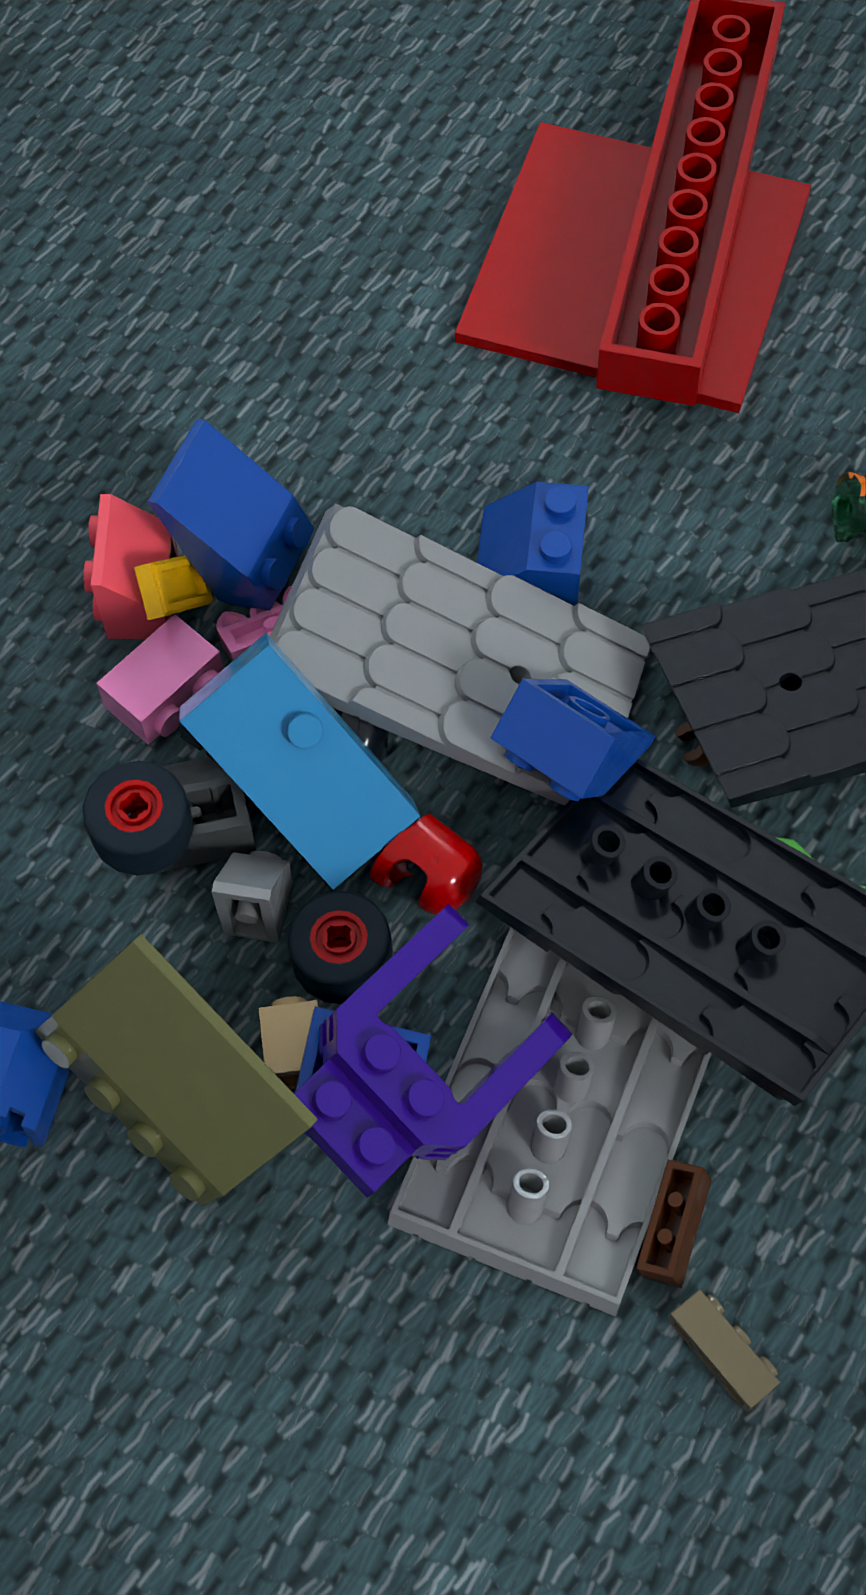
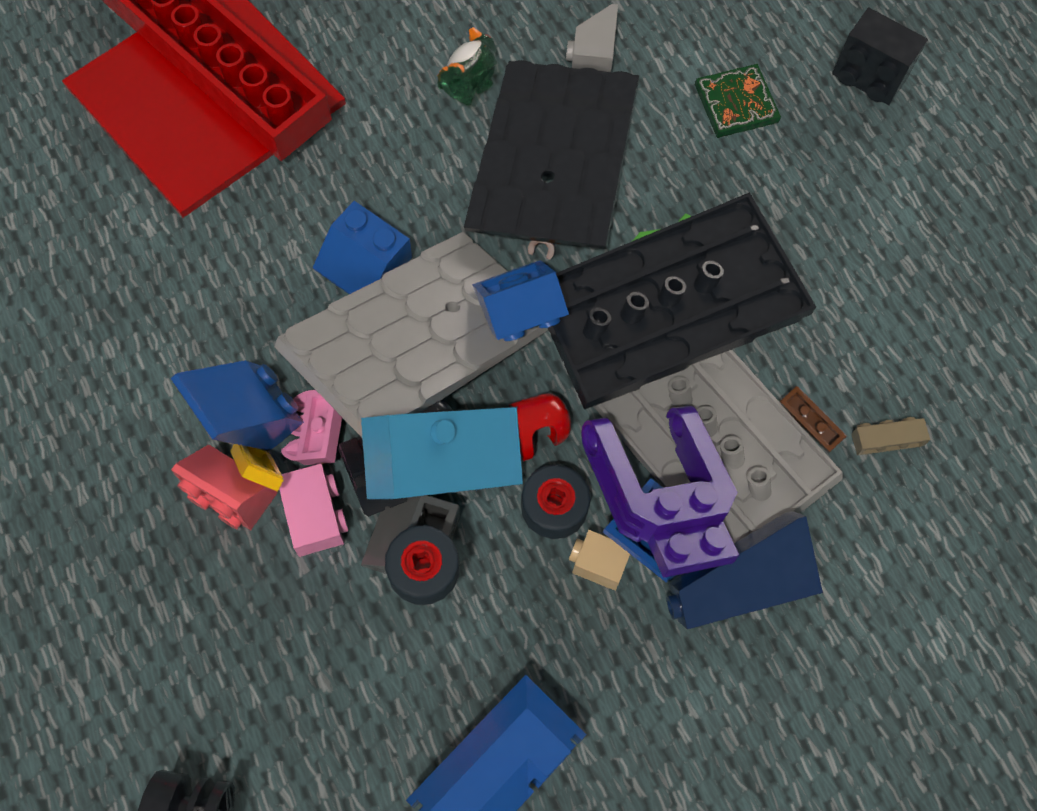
camera: 65 degrees left, 5 degrees up
(173, 1074) = (605, 629): olive slope -> none
(253, 895) = (496, 529): light grey slope -> none
(383, 1249) = (772, 569): none -> dark blue slope

